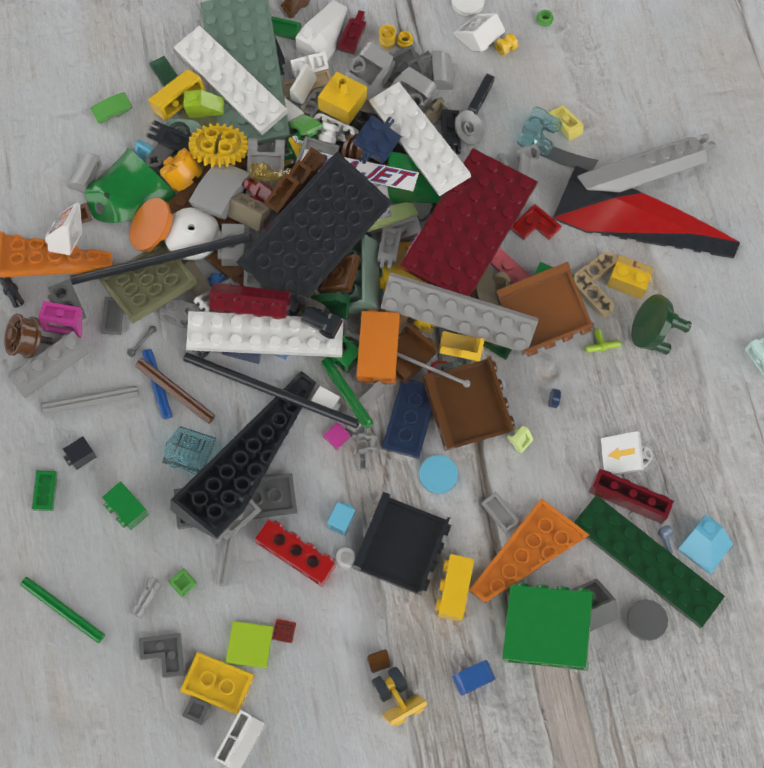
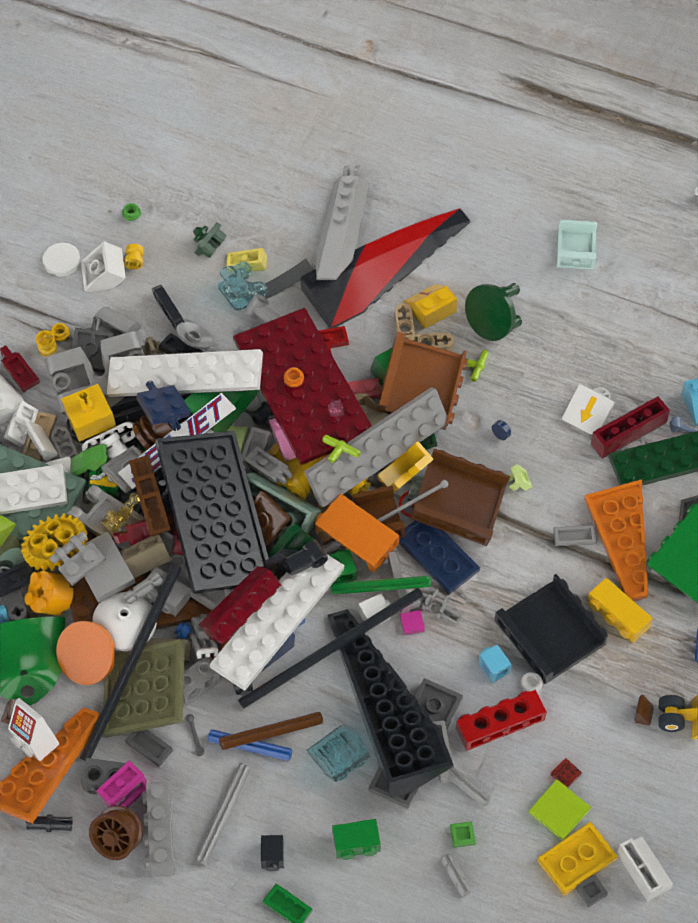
camera: 50 degrees left, 10 degrees down
(167, 648) = (518, 881): dark grey plate -> none
(205, 171) = (81, 563): none -> light grey plate
(218, 226) = (143, 588): none -> light grey axle
(430, 284) = (340, 446): none -> lime piece
(438, 474) = (506, 562): medium azure tile -> none
(460, 259) = (336, 408): none -> clear pink plate
(465, 212) = (293, 377): none -> orange plate
(560, 80) = (205, 246): none -> dark green hips

